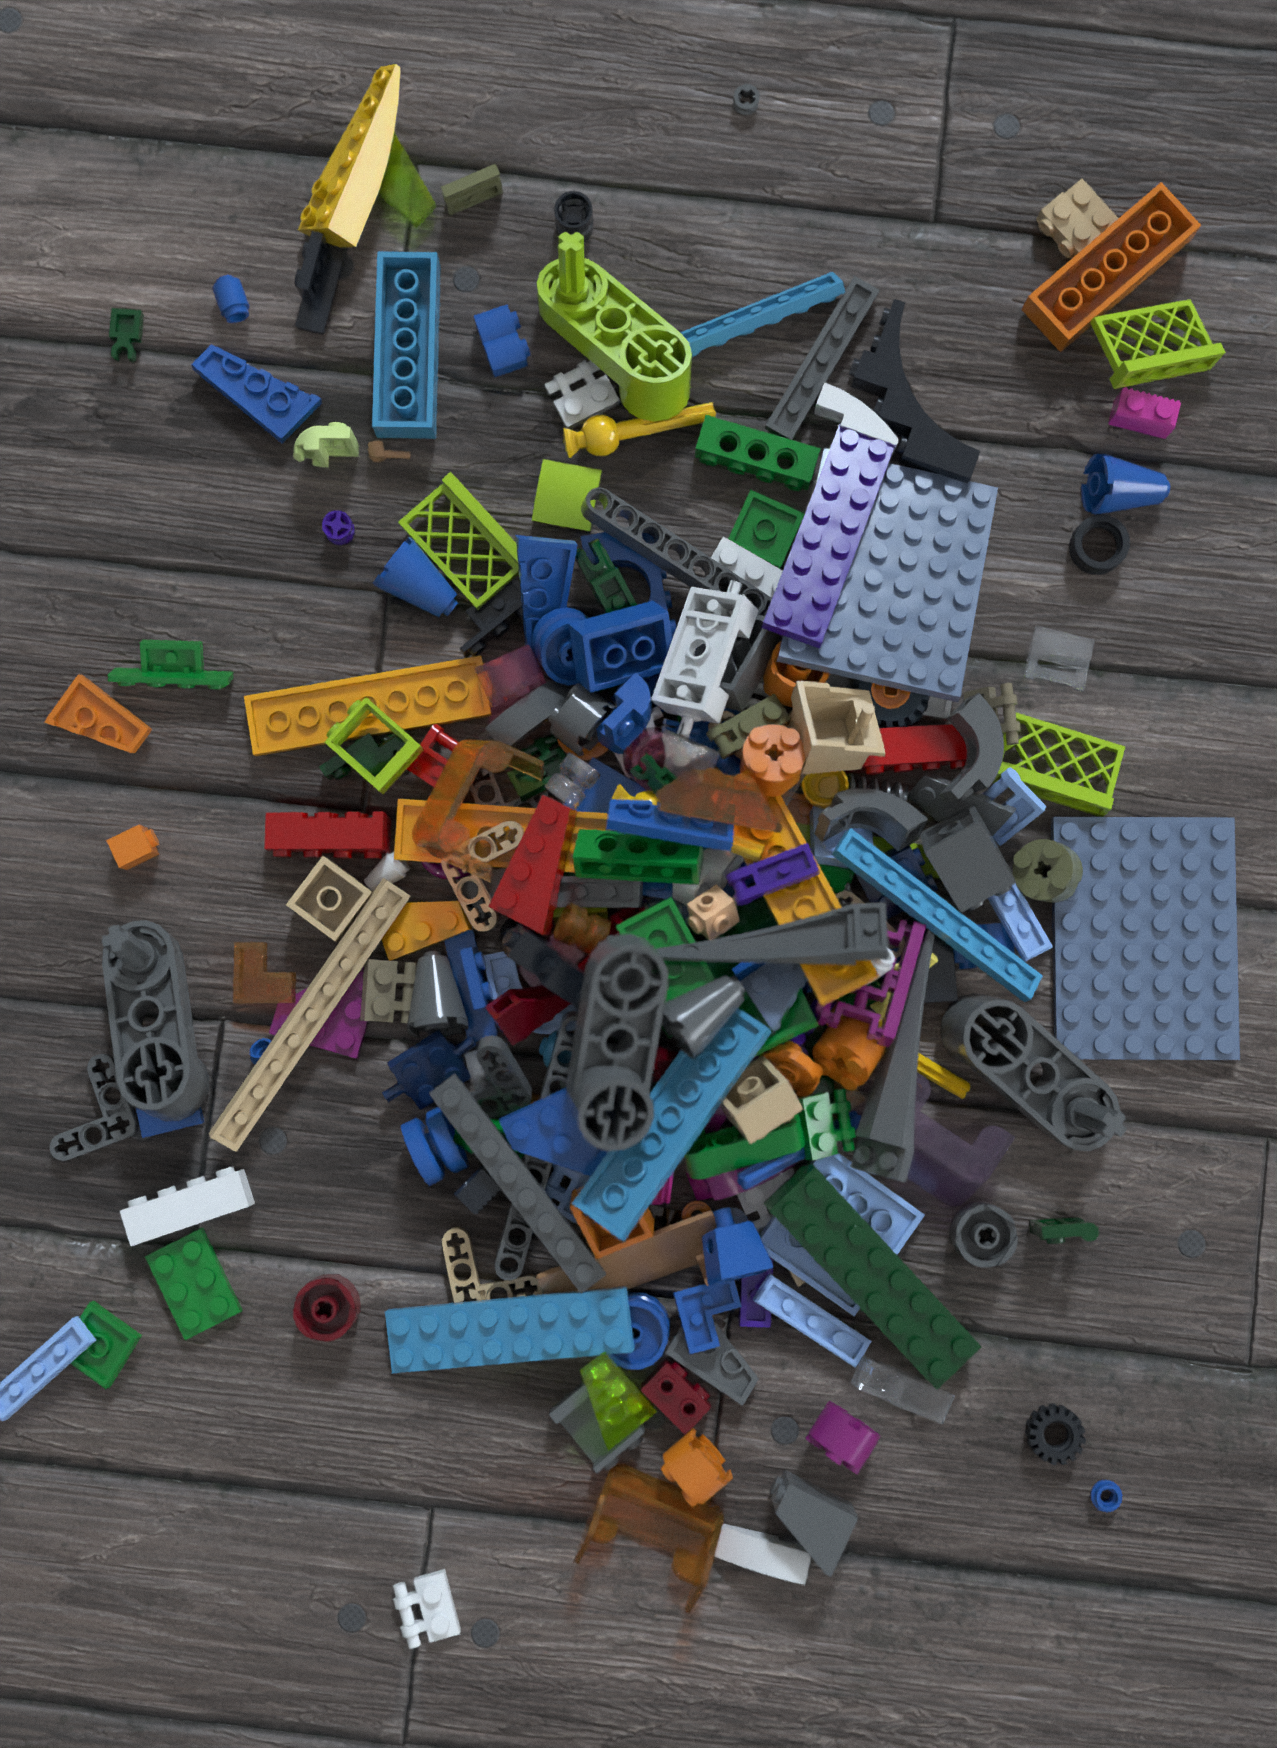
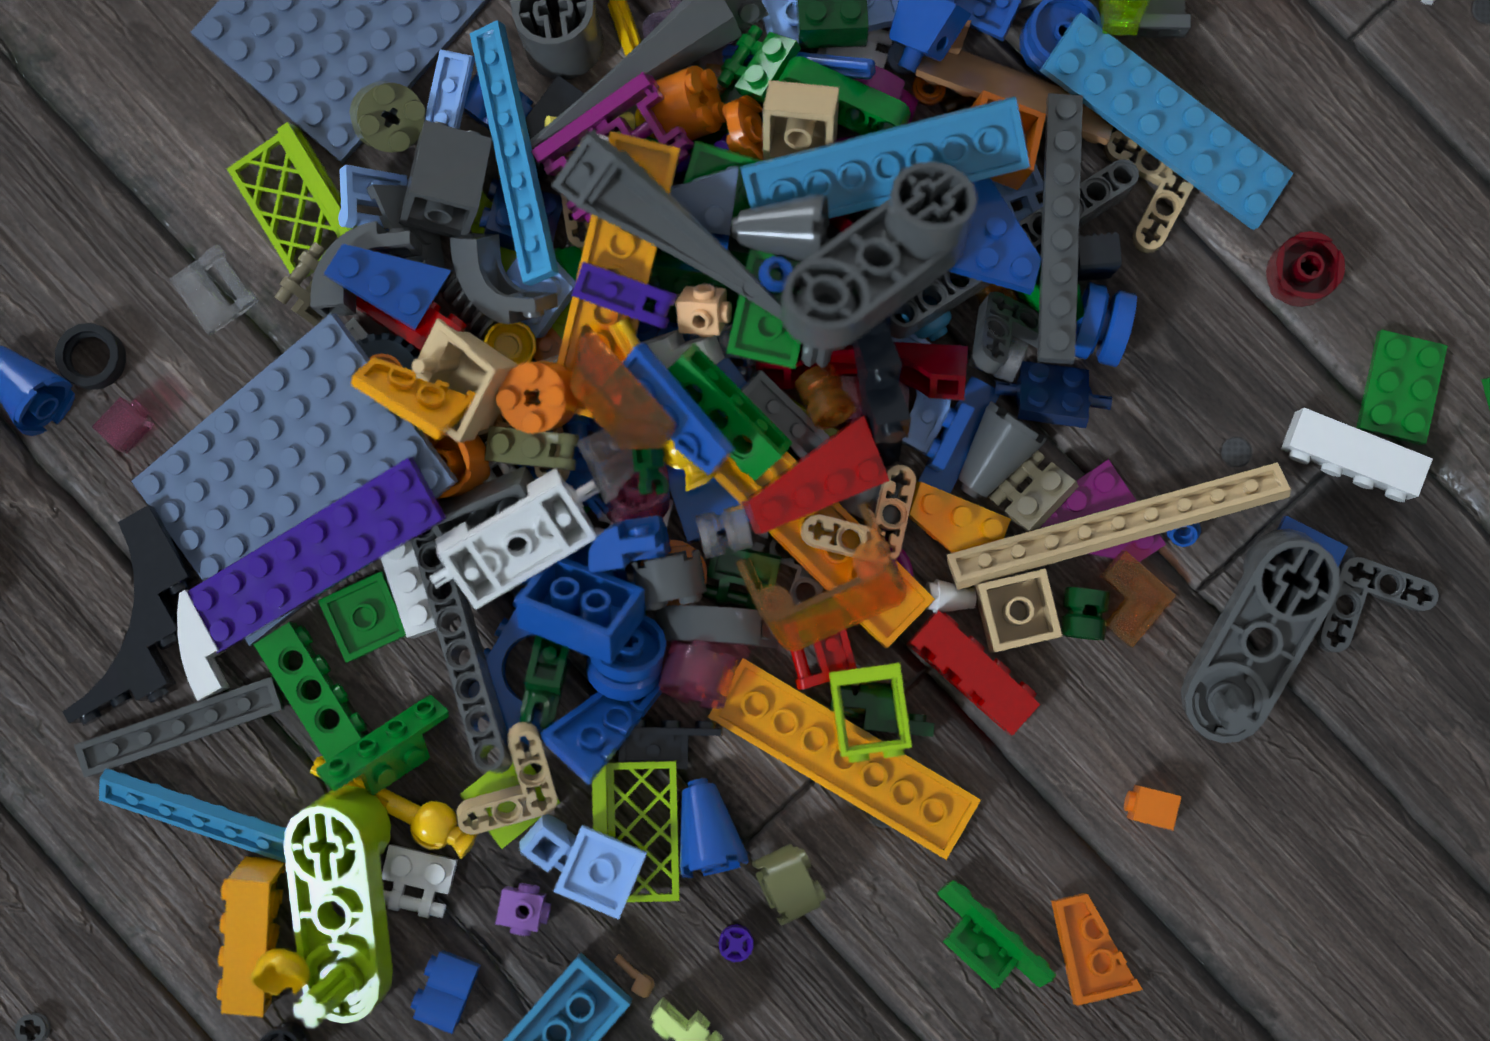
camera: 140 degrees left, 0 degrees up
(282, 926) = (1087, 626): none -> dark green wheel
(336, 590) = (788, 883): none -> olive brick
(463, 493) = (600, 871): none -> light blue plate
(496, 431) = (510, 909): none -> medium lavender brick
(511, 487) = (548, 843): none -> light blue brick
(557, 500) = (522, 795): none -> tan beam
(618, 258) = (280, 970): none -> yellow hair
(658, 268) = (249, 932): none -> light orange wedge
(672, 455) = (387, 751): none -> green bracket
(682, 986) = (780, 264): none -> blue plate
(847, 686) = (420, 402): none -> light orange wing
(941, 752) = (388, 282): none -> blue wing
(1035, 519) = (124, 424): none -> clear pink brick

